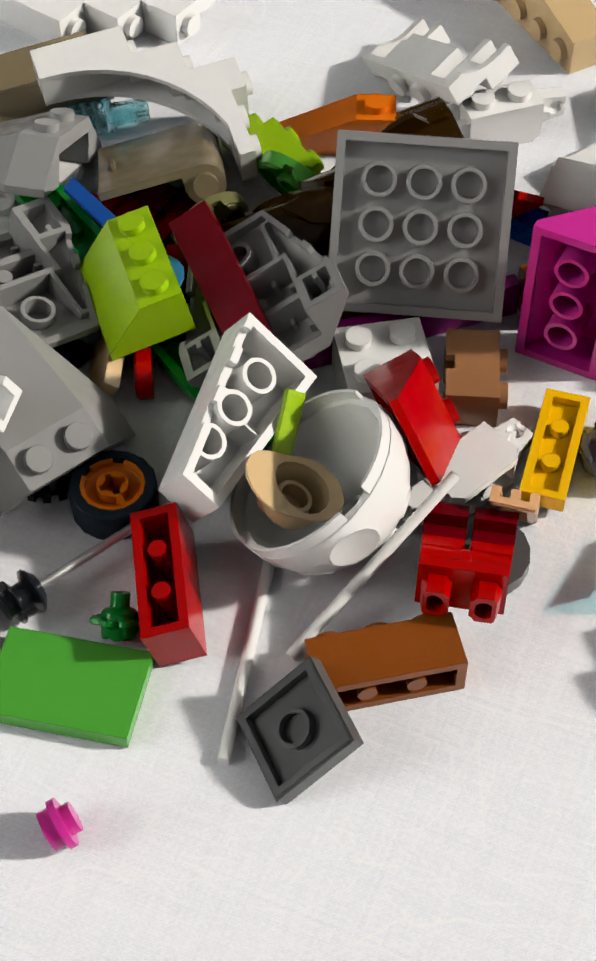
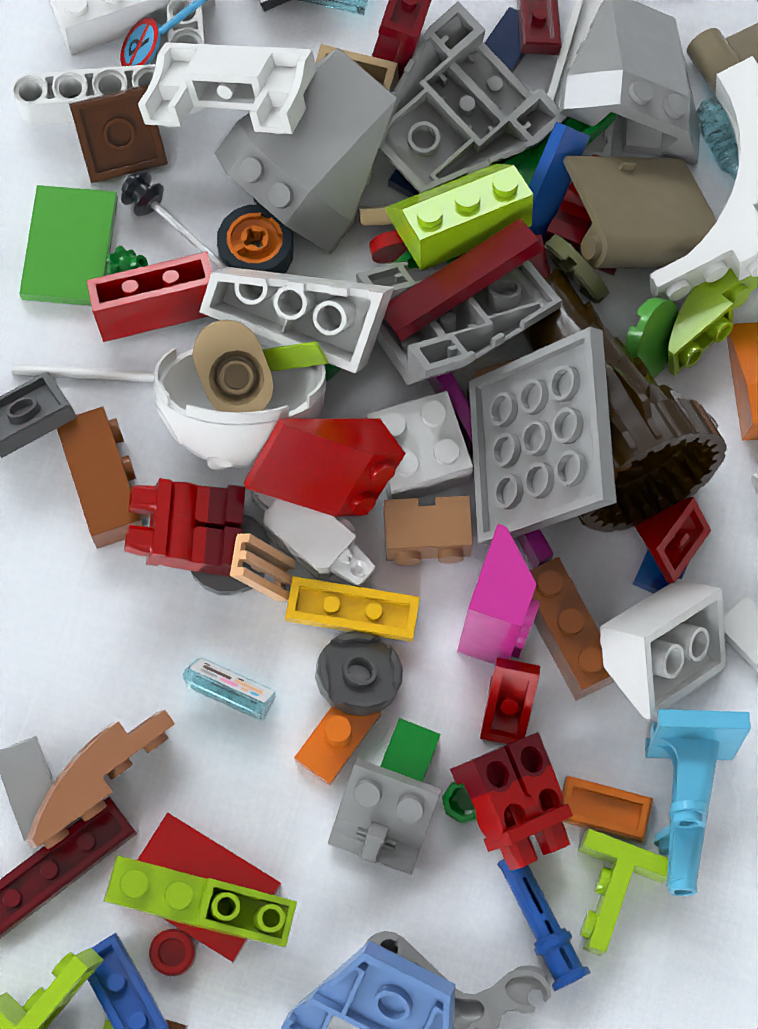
camera: 80 degrees right, 20 degrees up
(374, 564) = (183, 454): white axle -> none

